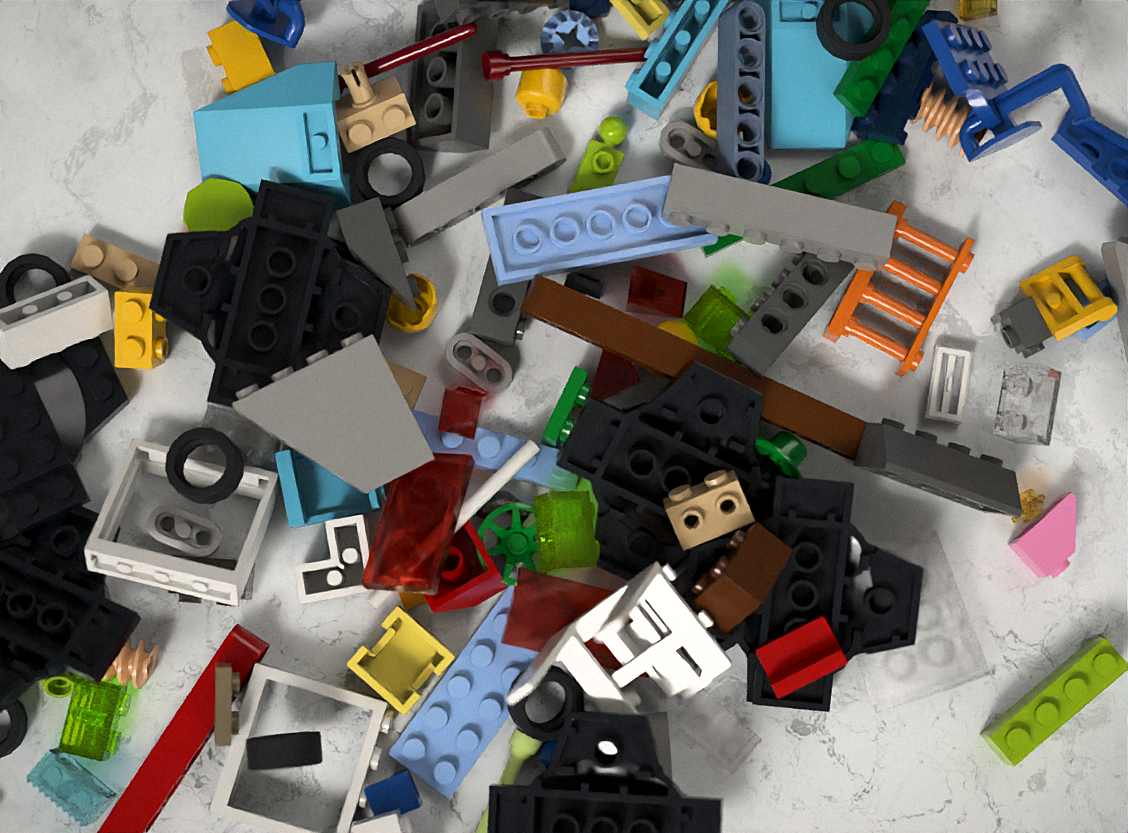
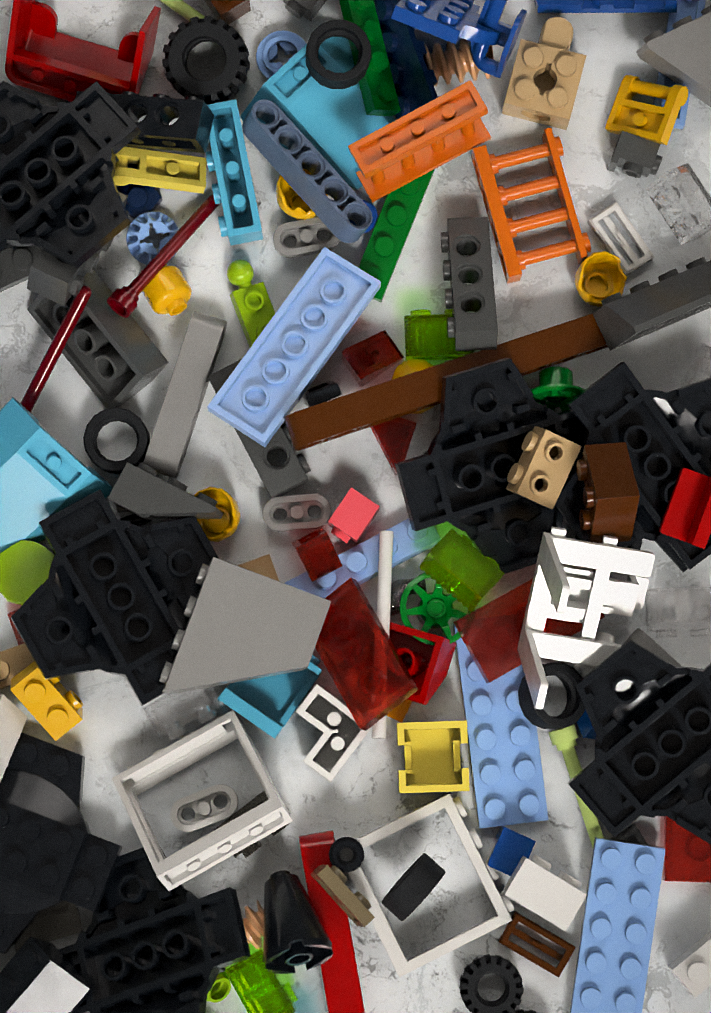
camera: 40 degrees left, 0 degrees up
(159, 690) = (291, 927): none -> black cone
(189, 442) = (155, 749): black tyre -> none
(247, 679) = (355, 846): none -> black plate
(370, 109) = (65, 407): tan brick -> none
(520, 408) = (352, 516): none -> coral brick
(573, 396) = (382, 474): green plate -> none
(779, 217) = (409, 230): light grey brick -> none
(855, 153) = (420, 141): none -> orange fence
(901, 399) = (599, 277): none -> yellow hair
(1008, 196) = (545, 77): none -> tan brick

